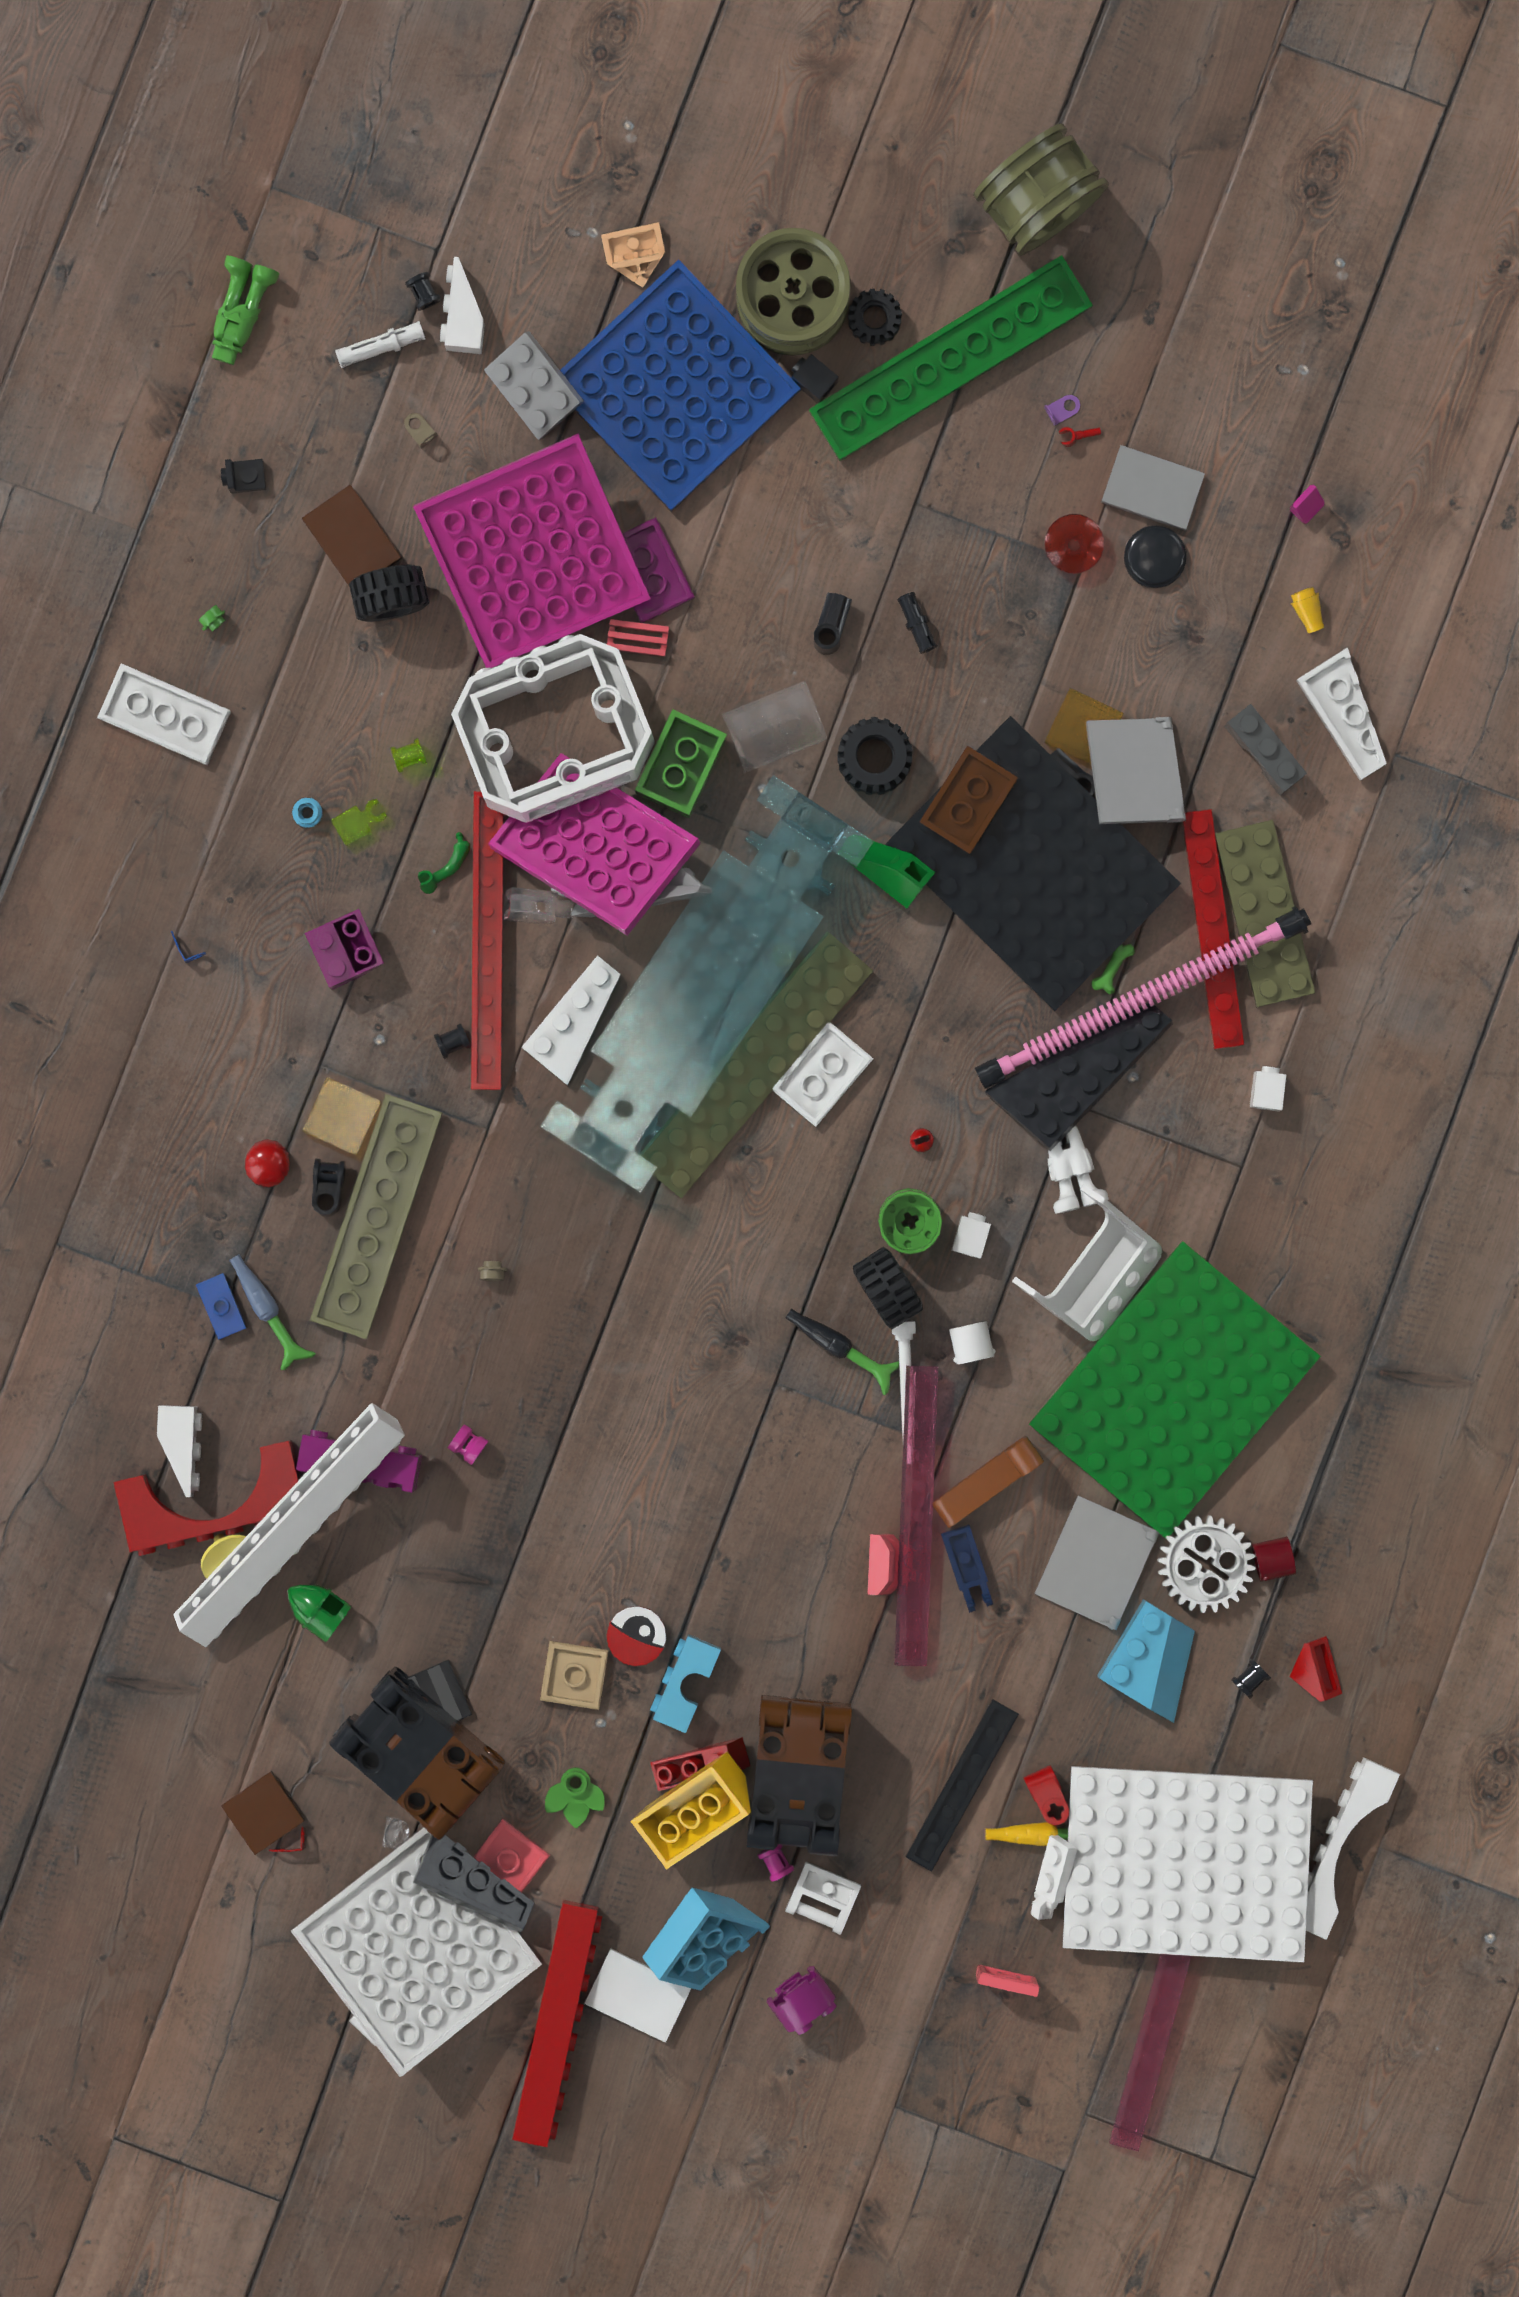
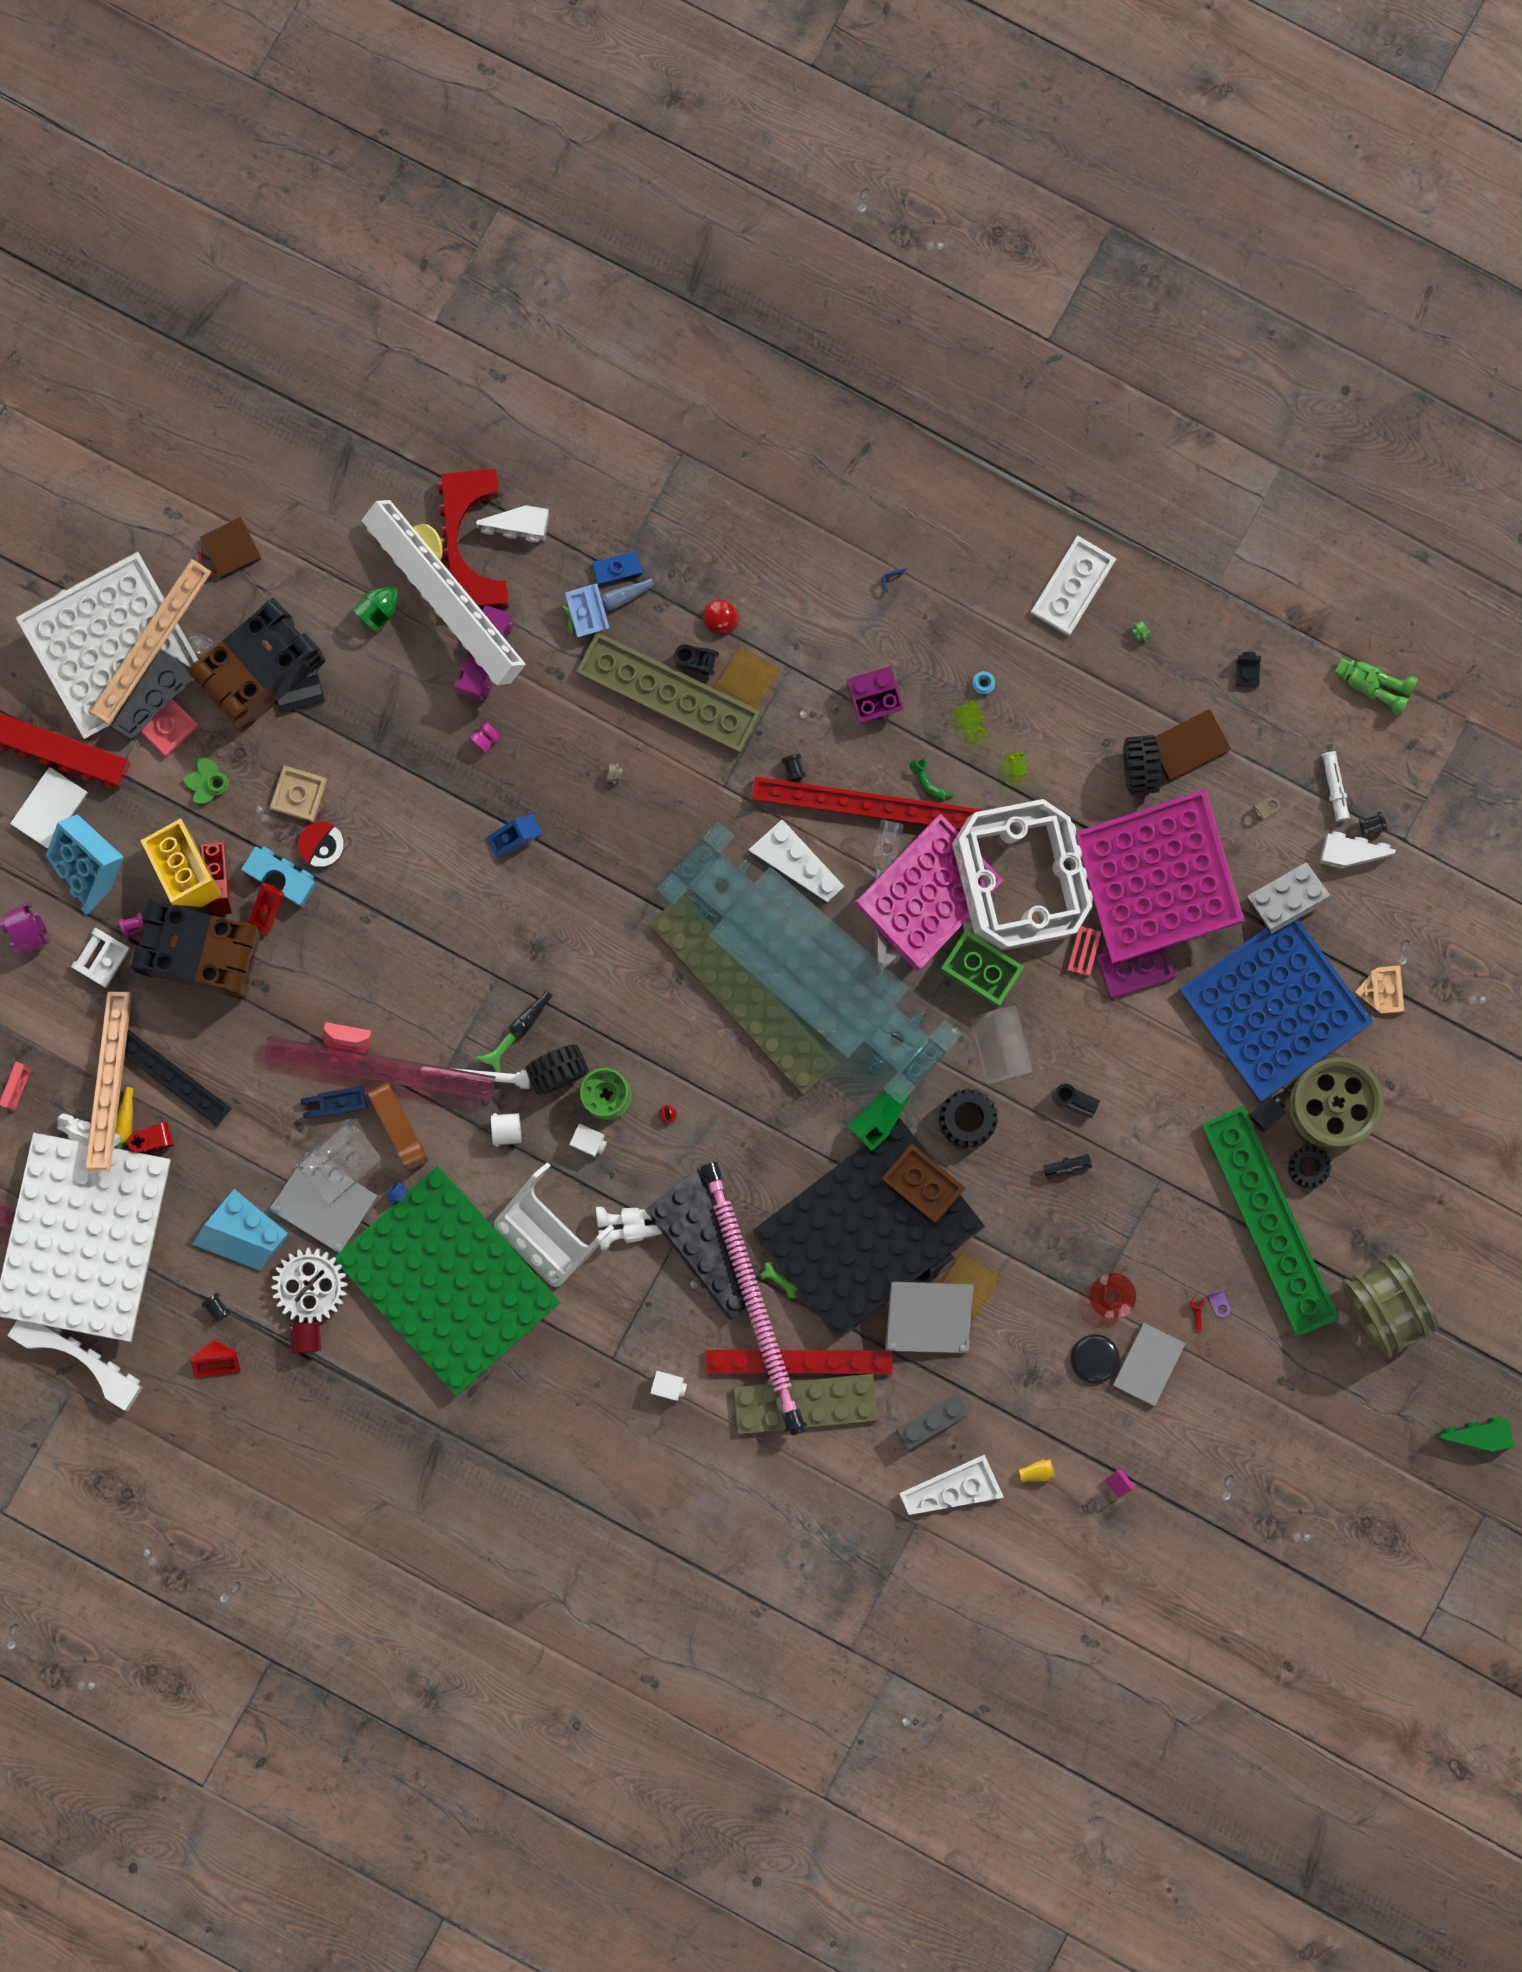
camera: 95 degrees right, 5 degrees down
(284, 1336) = (586, 610): none -> light blue plate
(405, 1896) = (150, 641): none -> light nougat tile
(590, 1387) = (514, 835): none -> blue slope
(730, 1693) = (266, 908): none -> red plate
(822, 1074) = (729, 1045): white tile -> none
(984, 1861) = (108, 1081): none -> light nougat tile
(1043, 1550) = (338, 1161): none -> clear slope
(1072, 1471) = (396, 1193): none -> blue plate
(1183, 50) = (1486, 1437): none -> green slope

